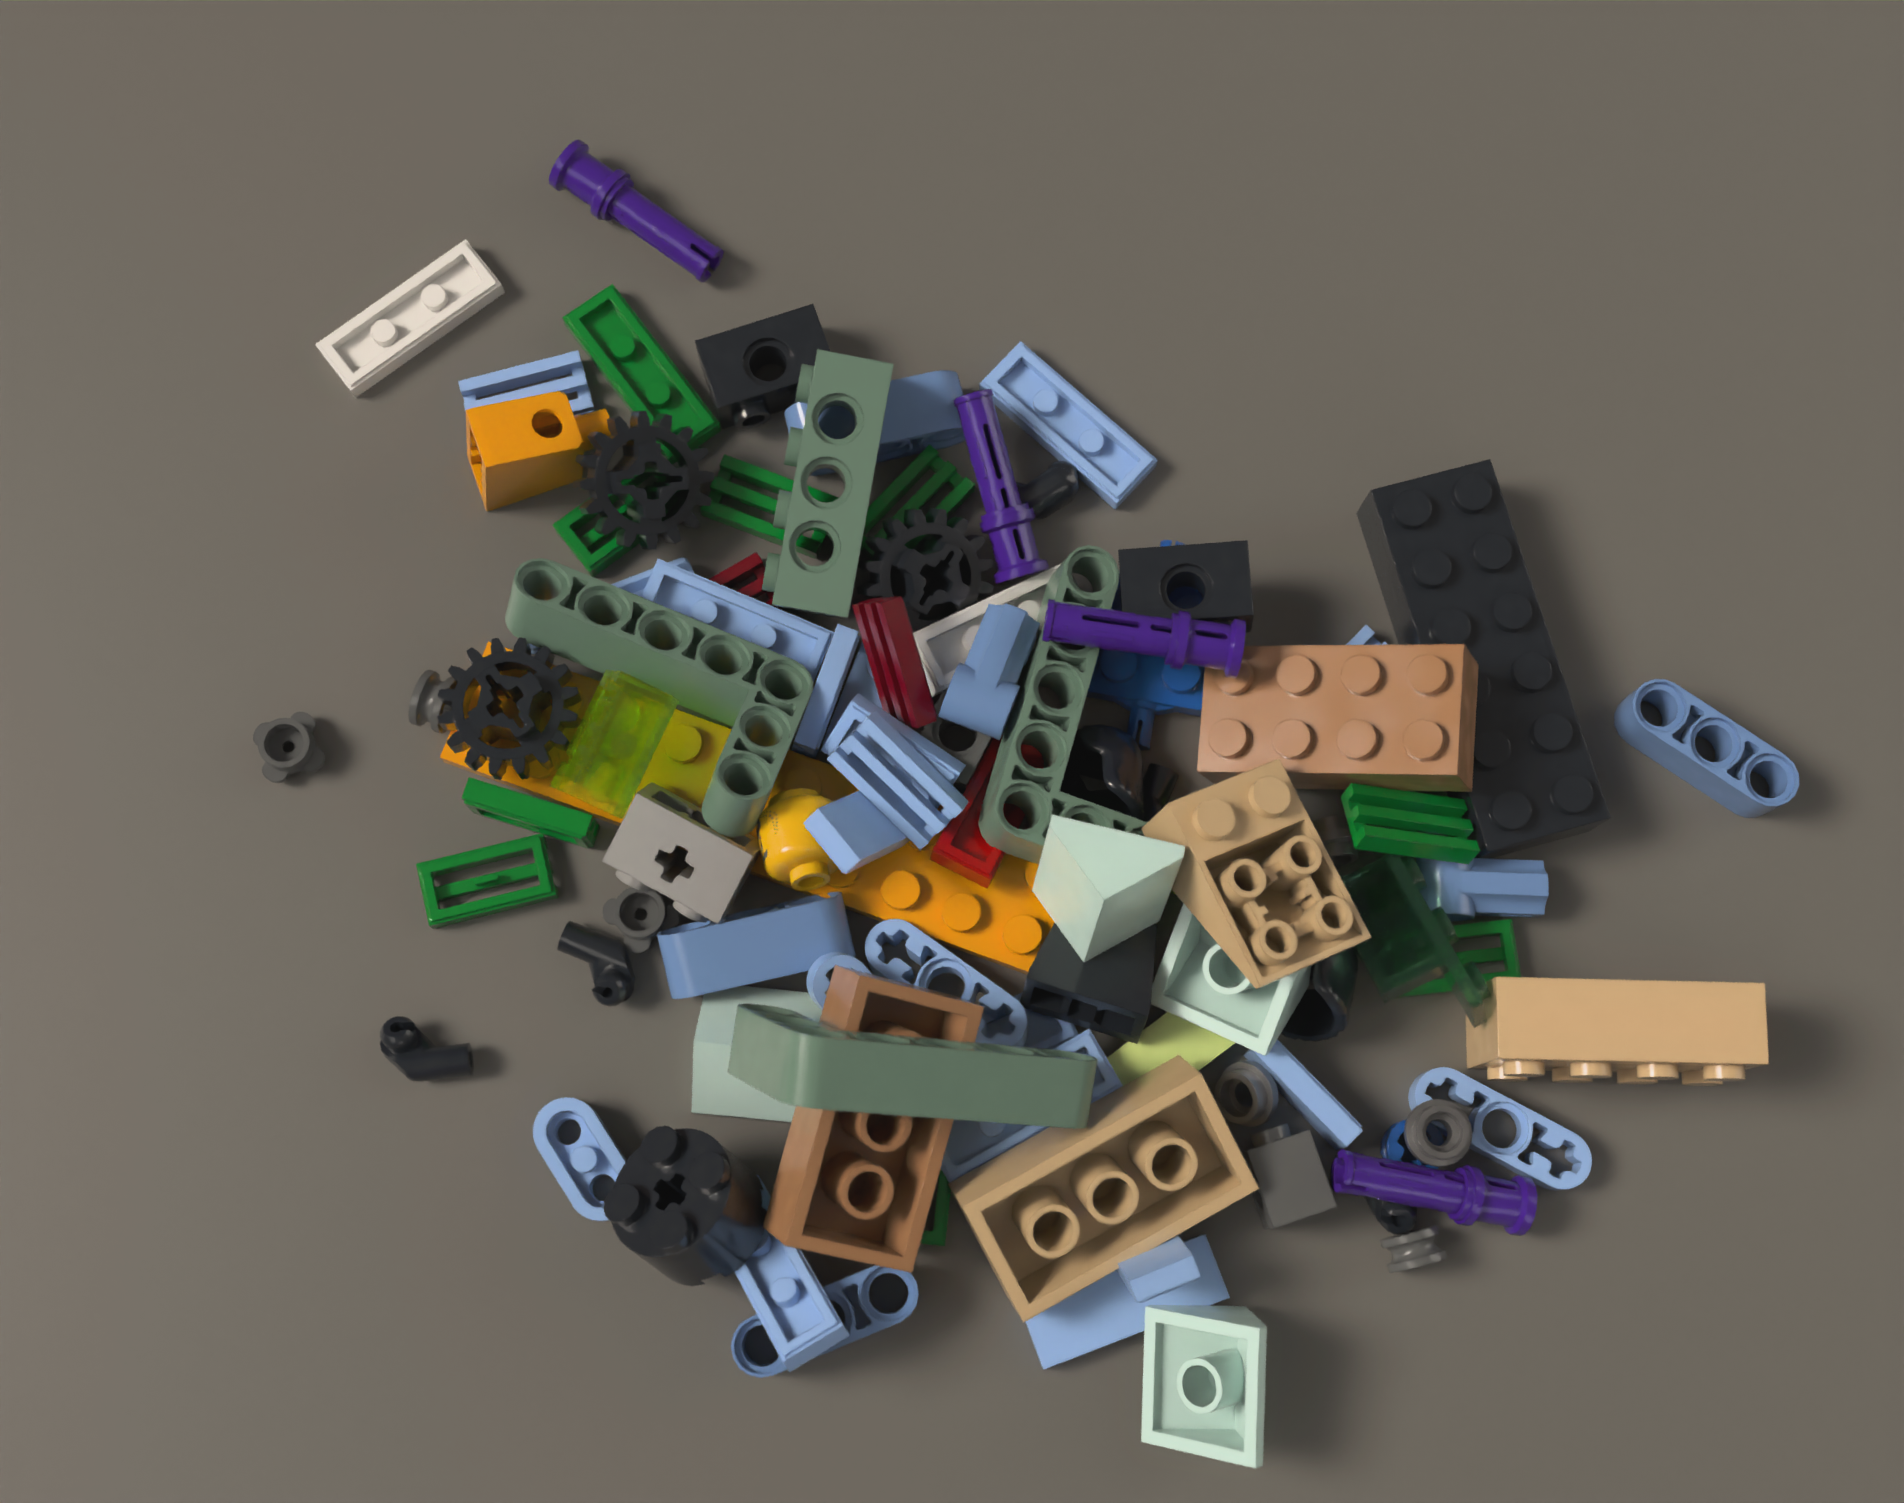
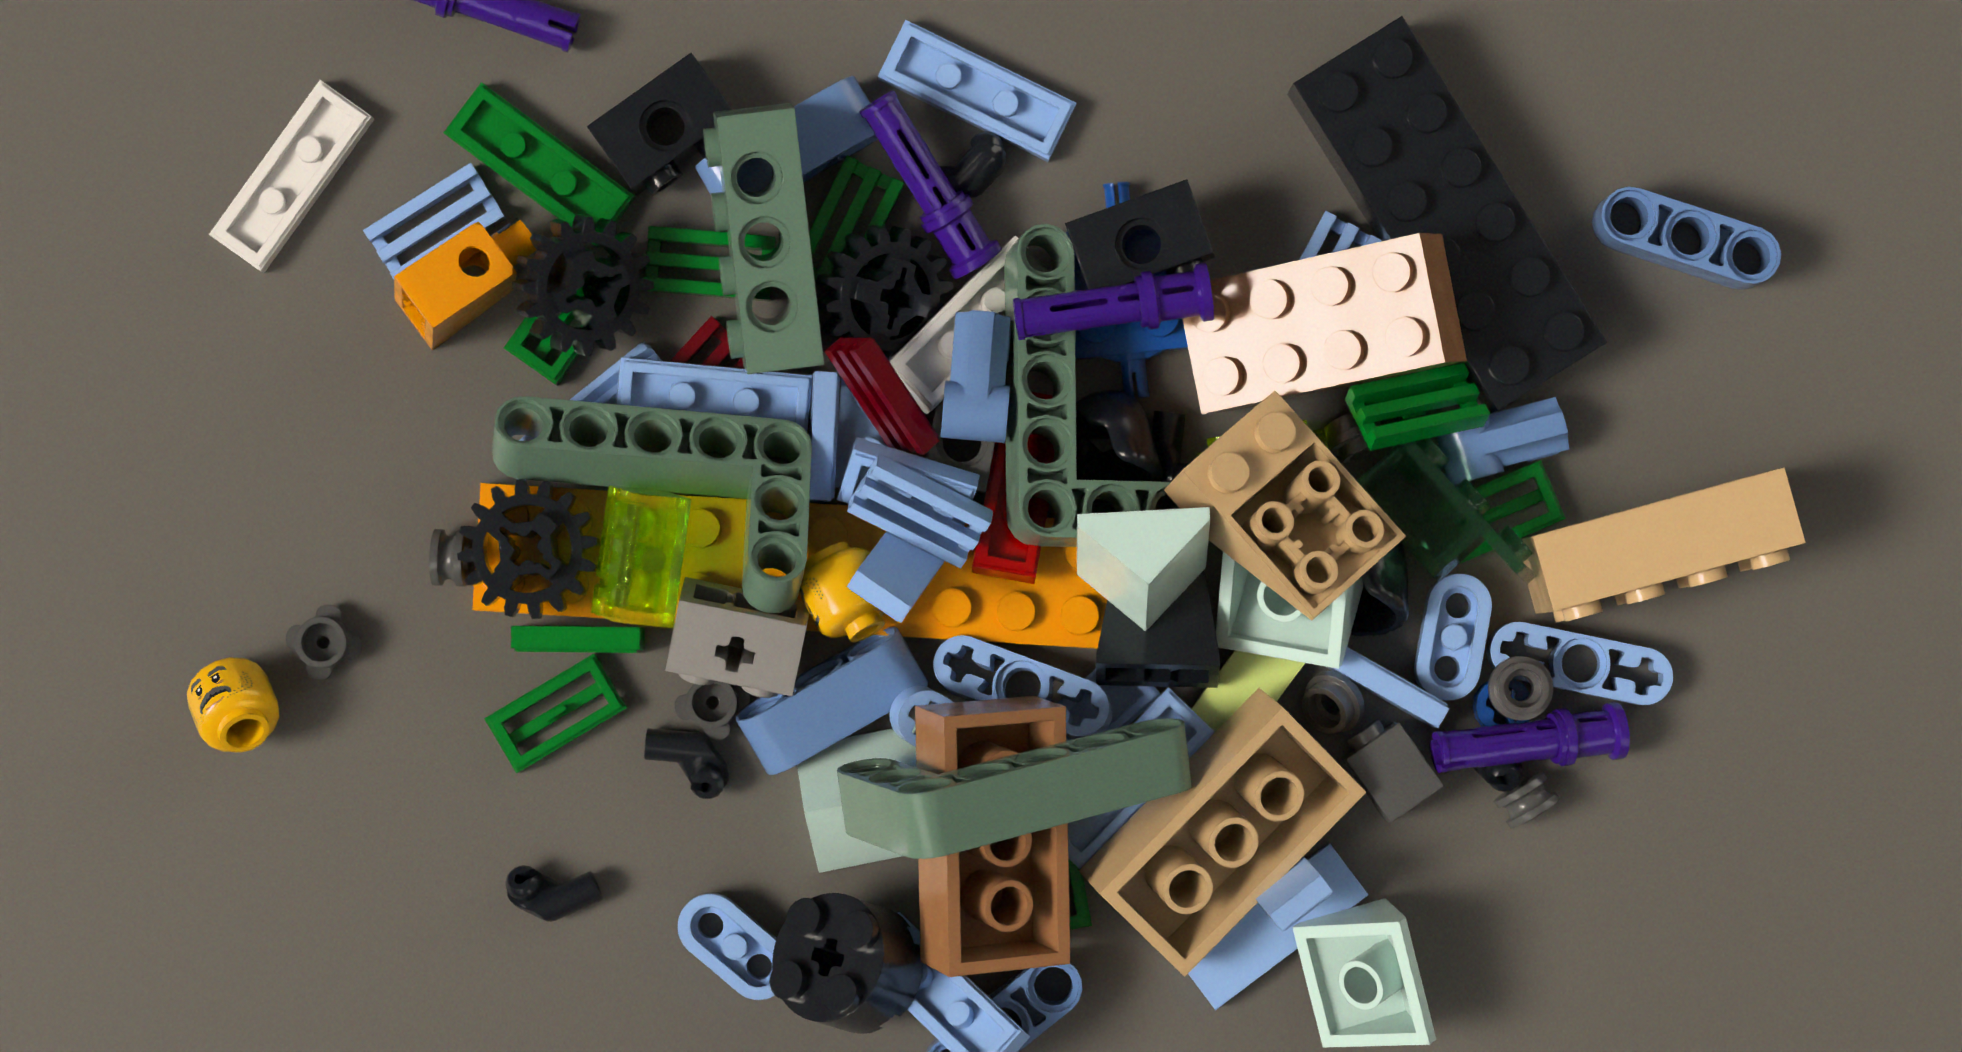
camera: 15 degrees left, 10 degrees up
(178, 775) = (233, 704): none -> yellow head
(1382, 1067) = (1453, 637): none -> light blue plate

